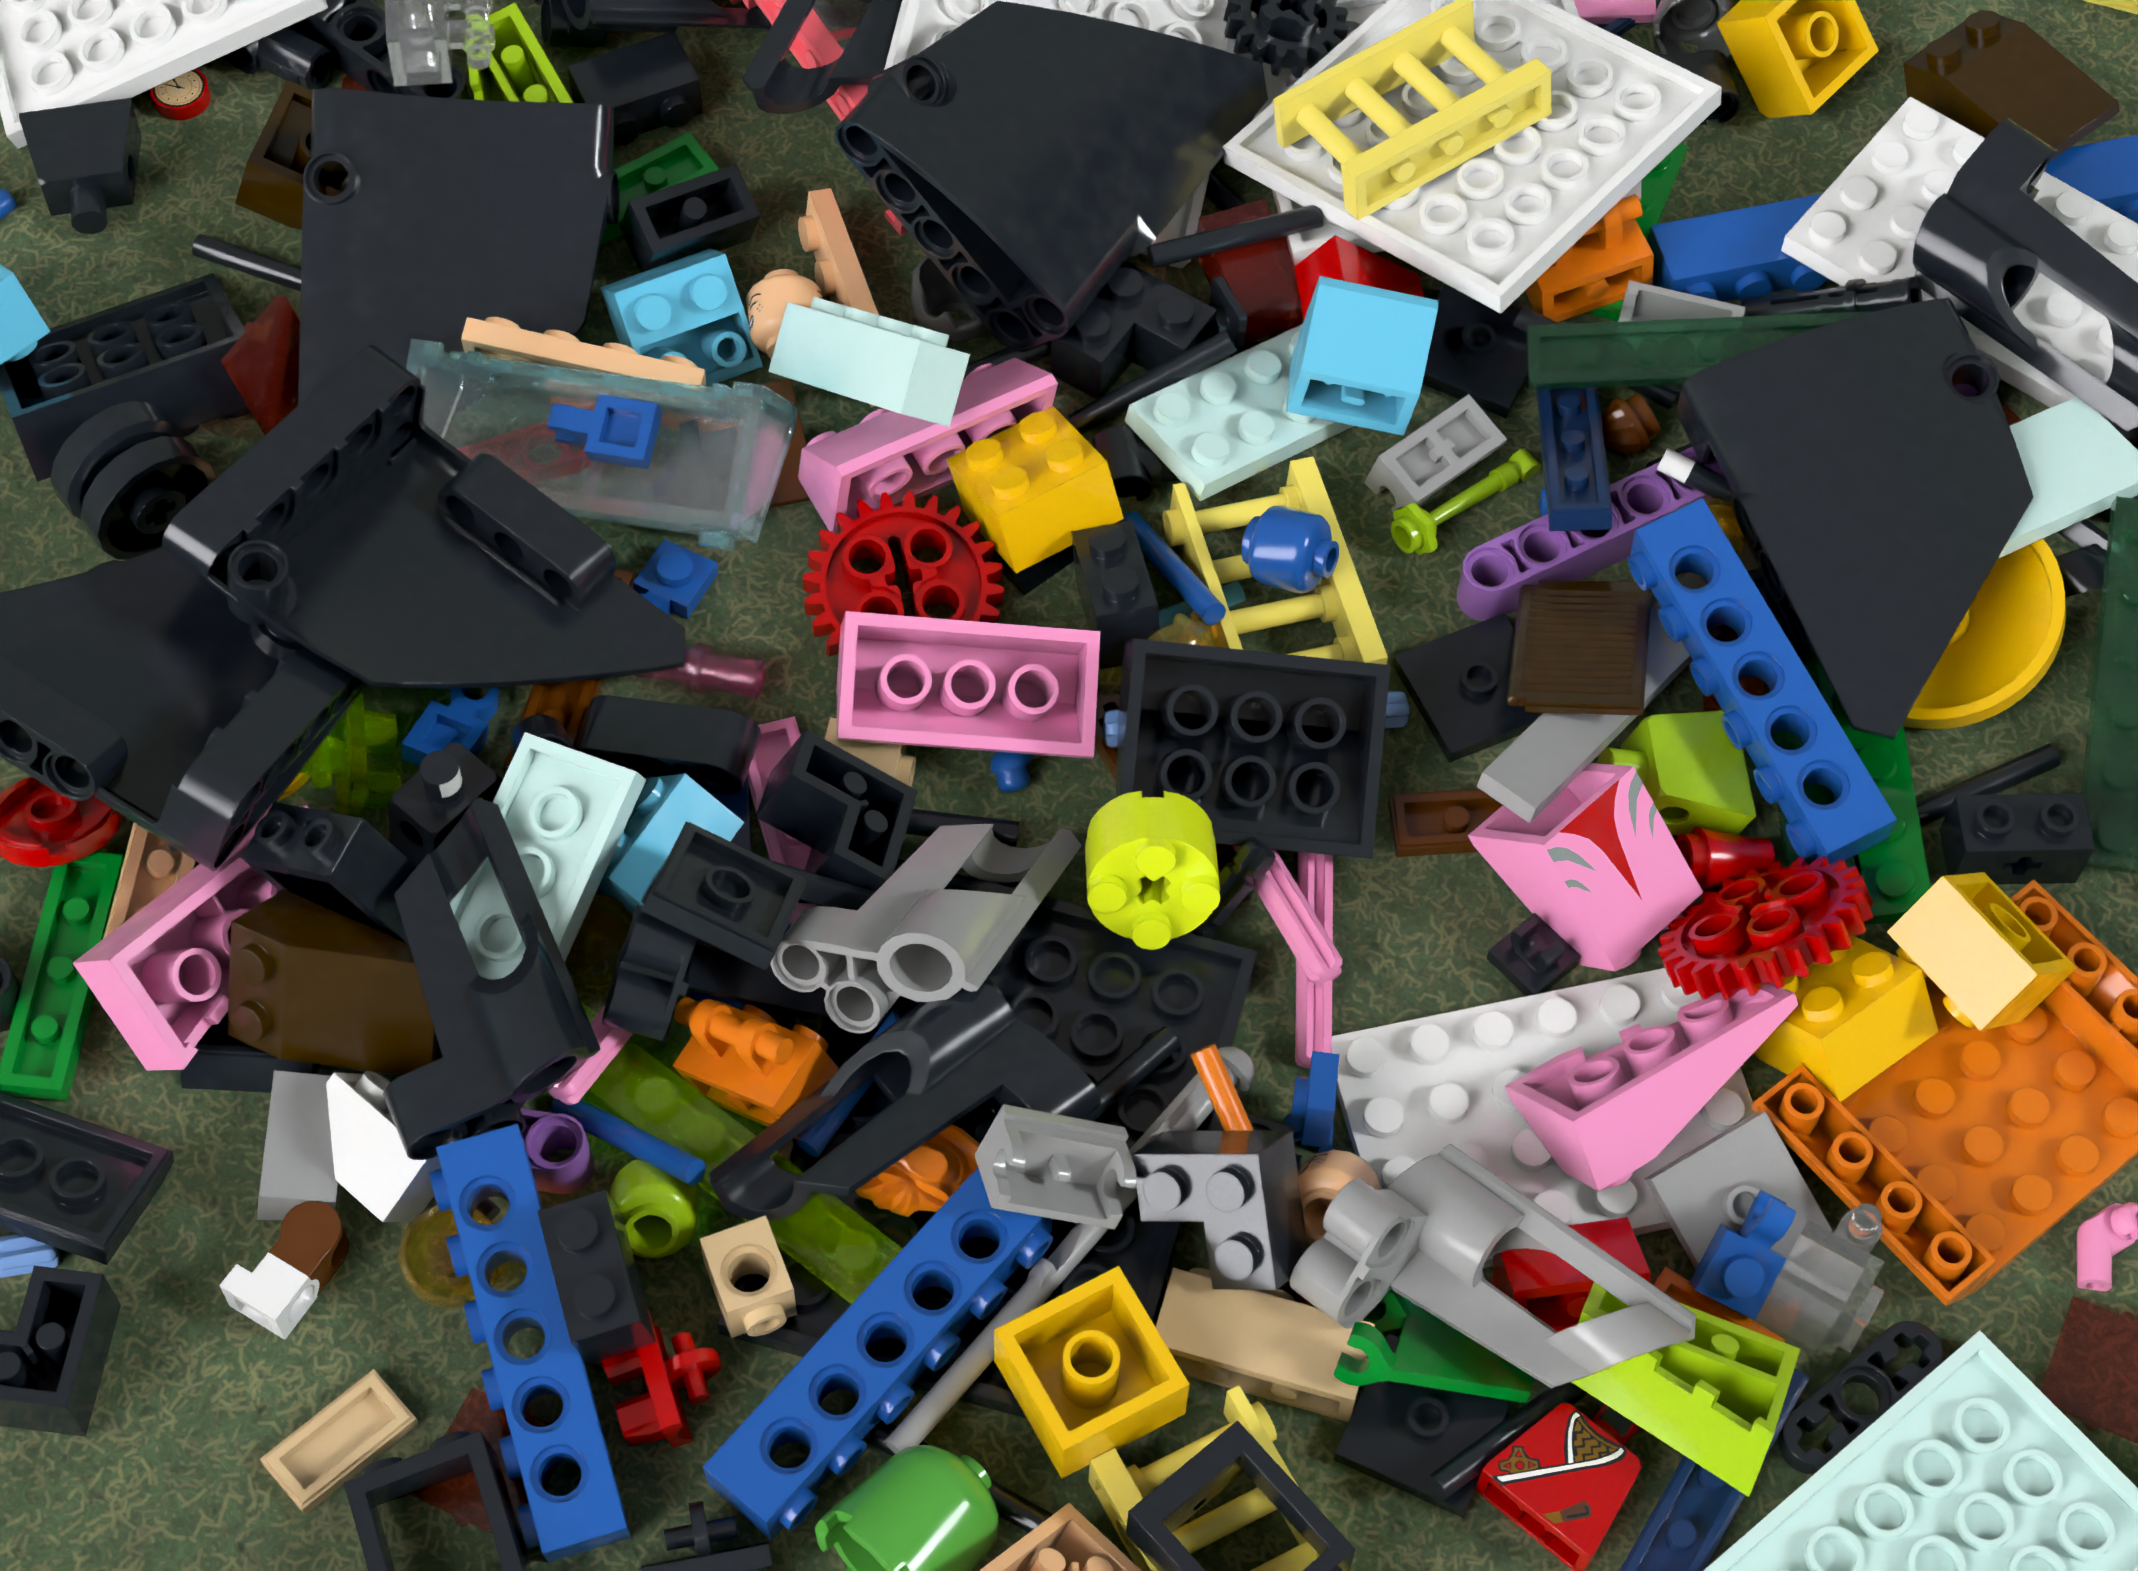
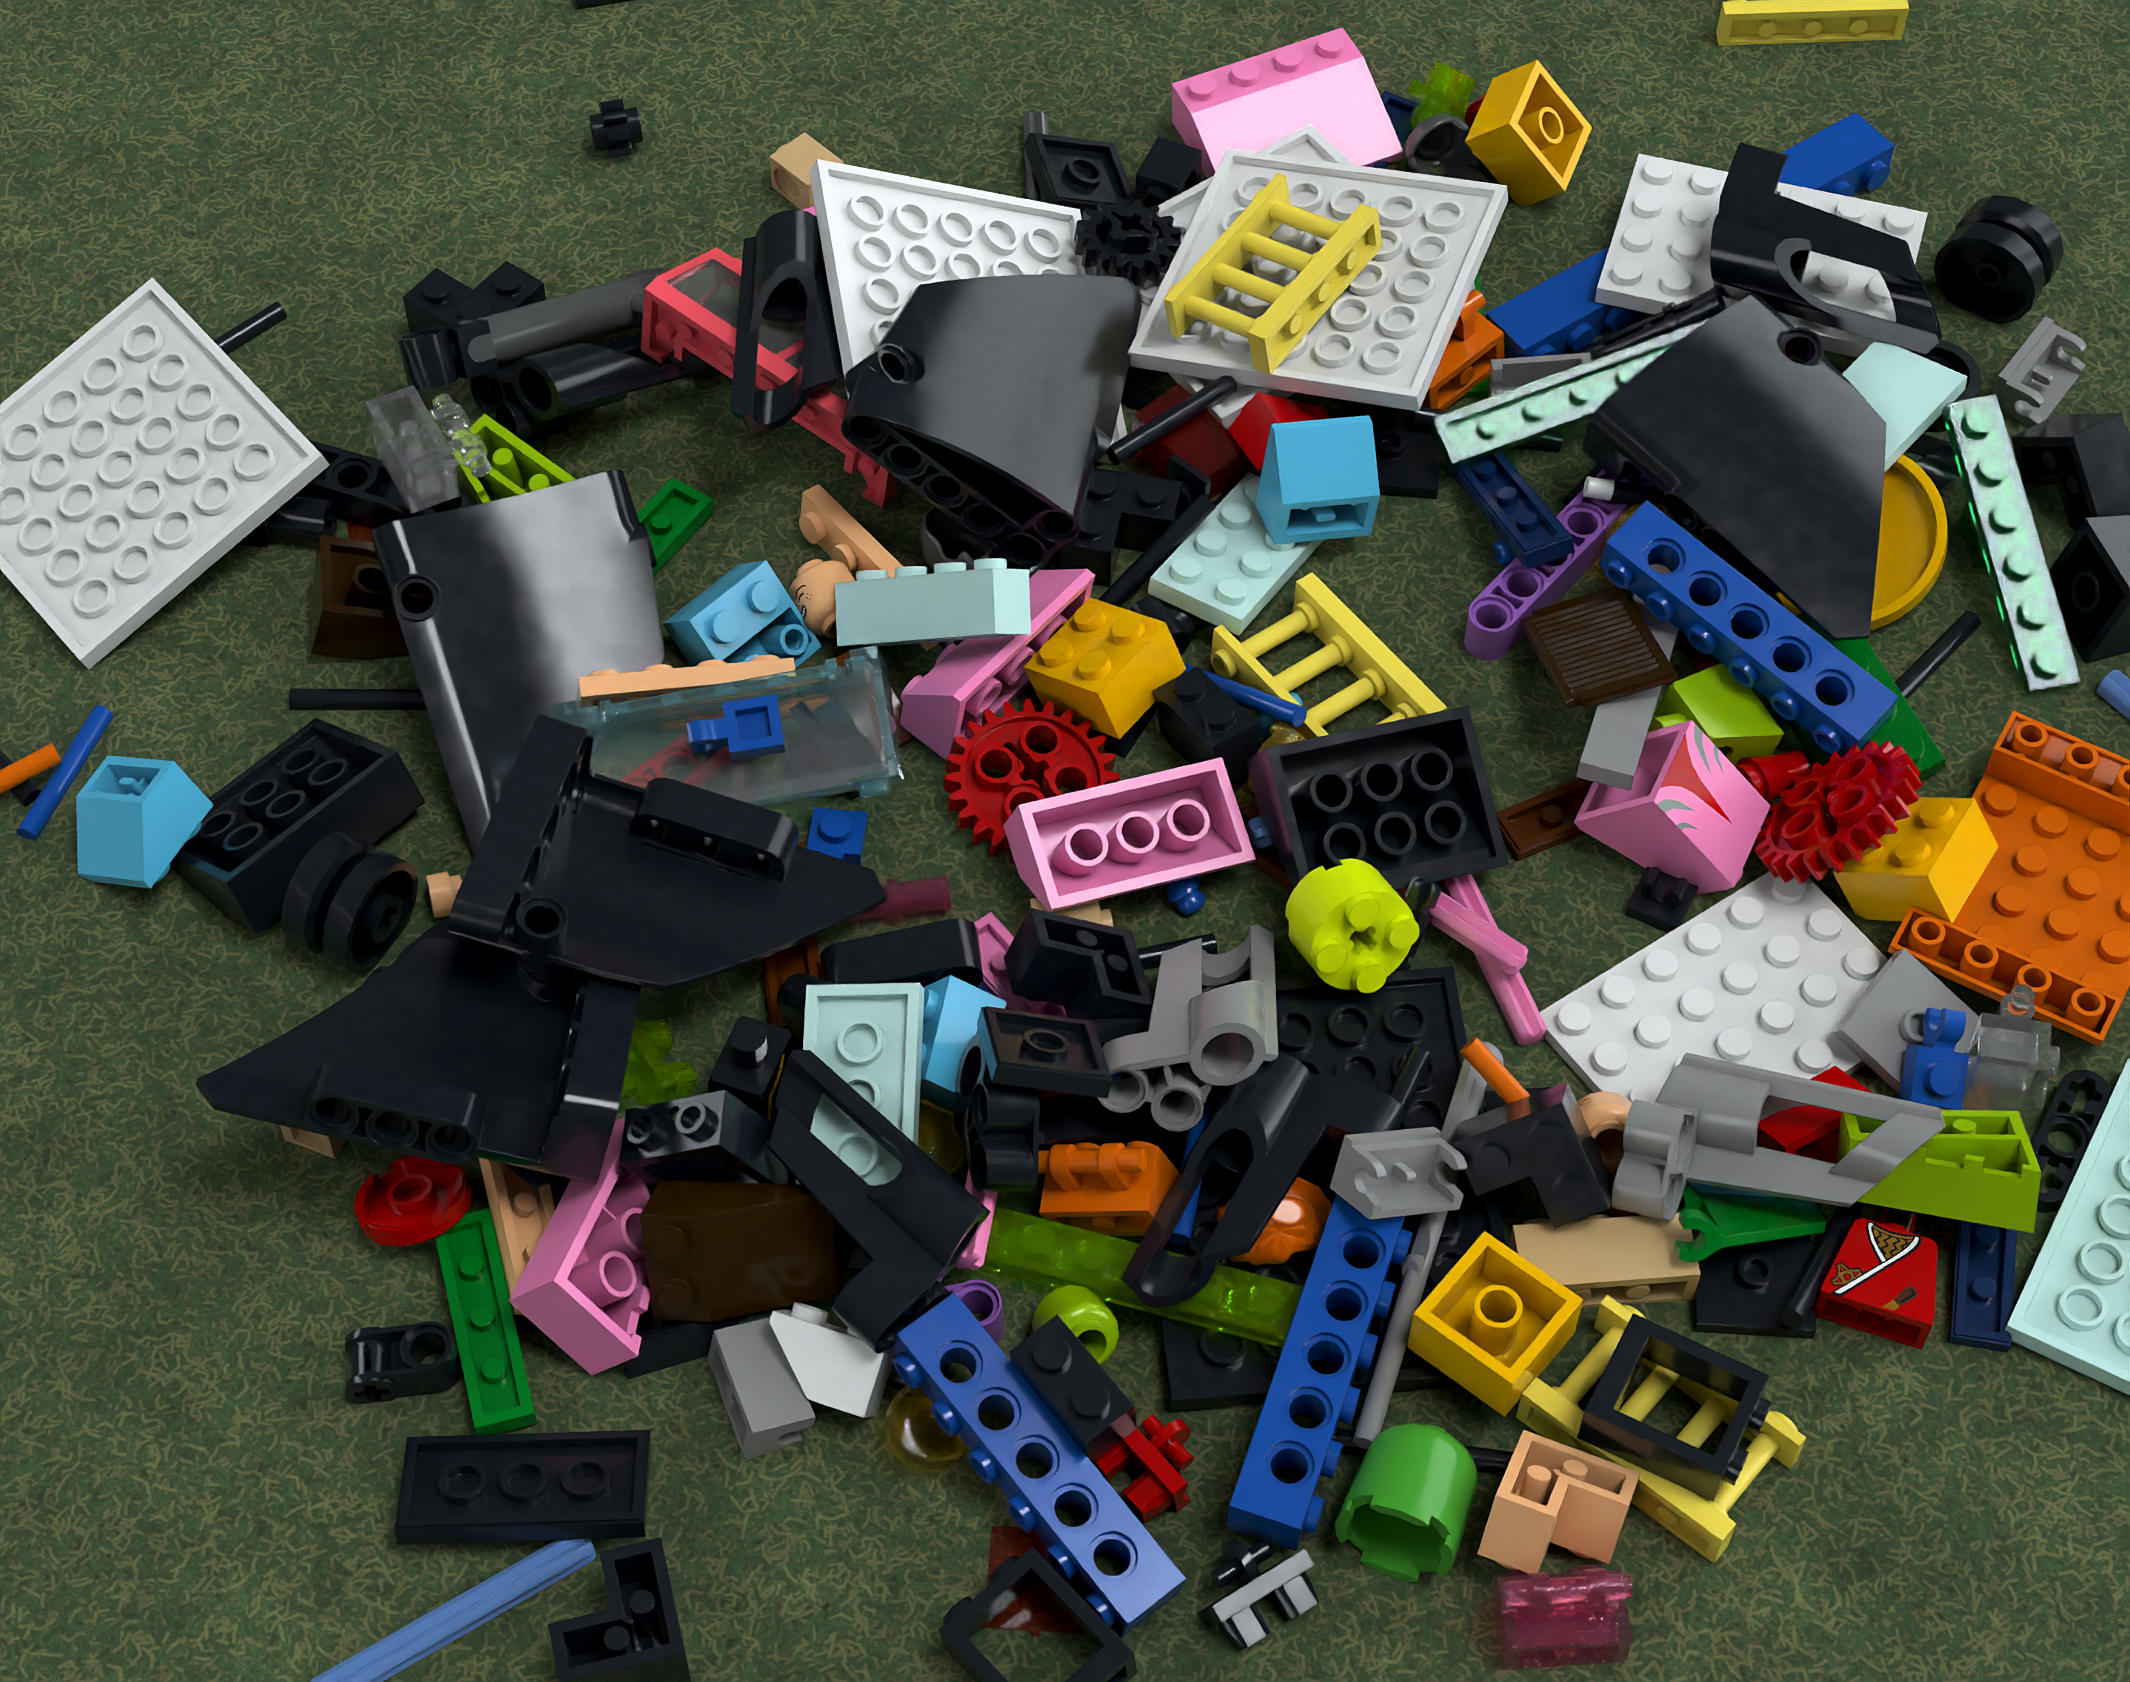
camera: 20 degrees left, 5 degrees down
(85, 159) = (157, 659): black torso -> none
(182, 96) = (216, 583): tile -> none
(267, 364) = (421, 775): clear red piece -> none
(292, 1271) = (803, 1488): leg -> none
(339, 1441) = (905, 1607): tan tile -> none
(460, 721) = (711, 1016): blue plate -> none
(634, 1141) = (1038, 1281): blue bar -> none
(643, 83) = (615, 441): black brick -> none
(690, 218) = (712, 546): black brick -> none
(745, 1251) = (1182, 1329): tan brick -> none
(1289, 549) = (1333, 647): blue head -> none
(1315, 1102) = (1562, 1057): blue plate -> none
(1417, 529) = (1413, 604): lime piece -> none
(1435, 453) = (1403, 543): light grey hinge -> none
(1464, 687) = (1518, 711): black plate -> none
(1629, 425) = (1541, 470): reddish brown plate -> none
(1630, 1101) = (1800, 973): bright pink wedge -> none
(1980, 951) = (2006, 774): yellow brick -> none
(2005, 70) = (1701, 121): dark brown slope -> none
(2018, 837) = (1980, 688): black brick -> none

